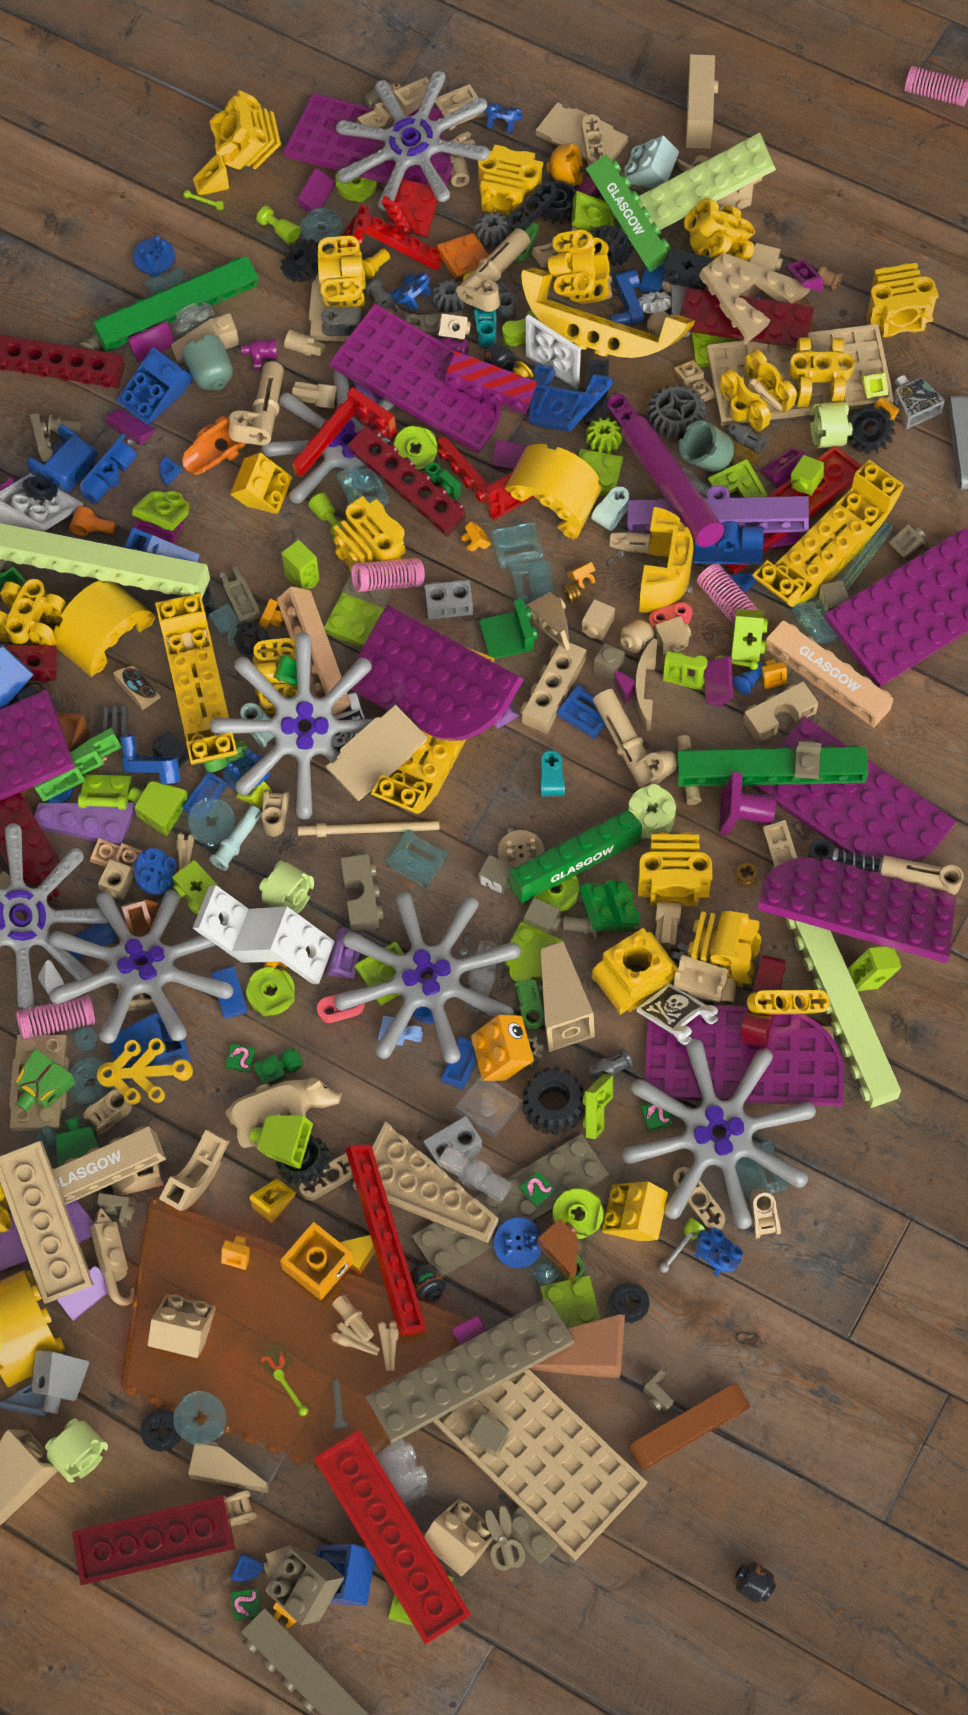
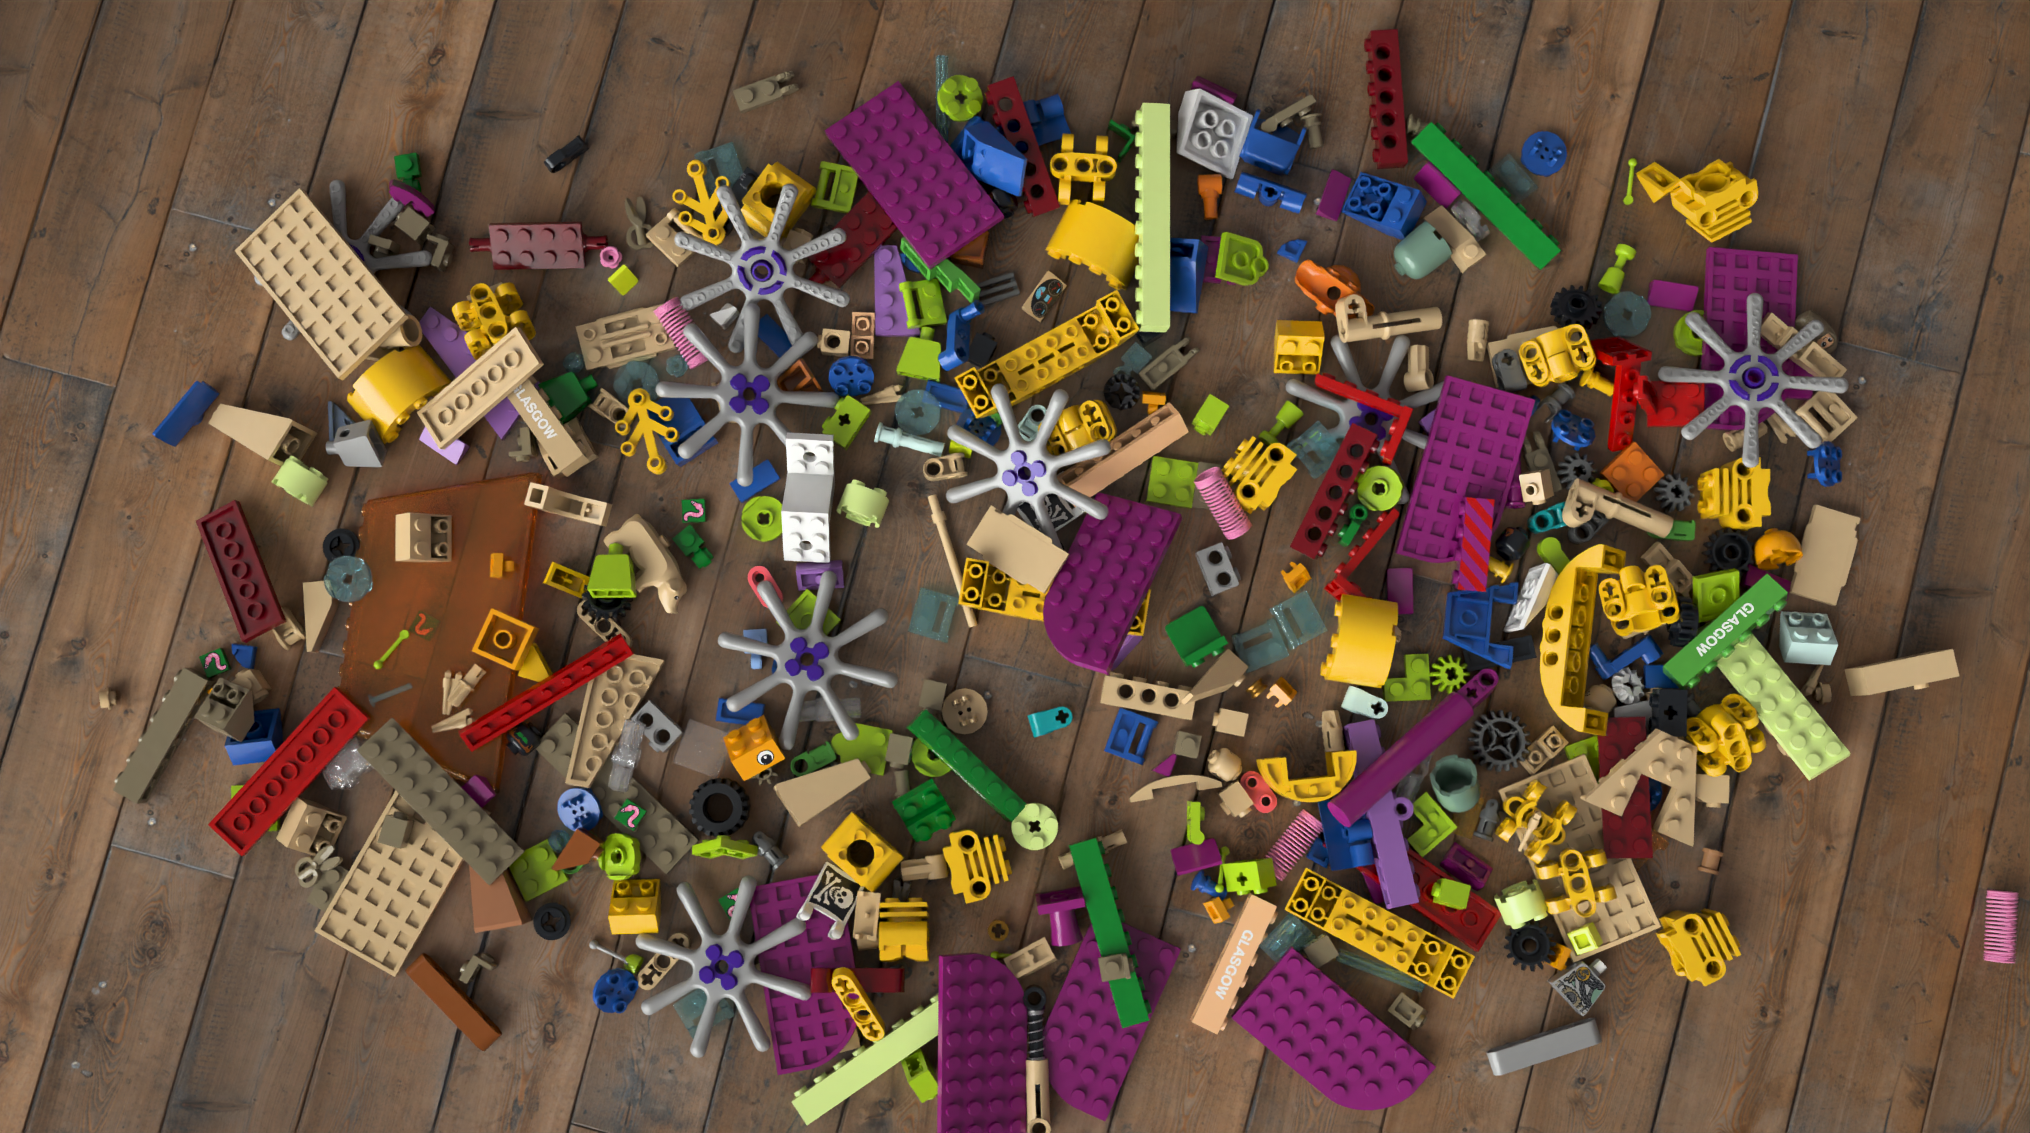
camera: 70 degrees right, 20 degrees up
(42, 1082) = (617, 341): bright green torso -> none
(46, 488) = (1237, 136): black gear -> none
(110, 1255) = (480, 454): tan plate -> none
(260, 349) = (1456, 297): magenta piece -> none
(286, 671) = (1072, 439): green tile -> none
(364, 911) = (901, 568): dark tan arch -> none
(547, 199) = (1727, 531): black beam -> none
(596, 134) = (1825, 570): tan beam -> none
(630, 745) = (1098, 789): tan piece -> none
(755, 1582) = (332, 1089): black head -> none
(764, 1217) = (662, 1023): tan piece -> none
(794, 701) = (1194, 938): tan arch -> none
(805, 275) = (1703, 836): magenta slope -> none

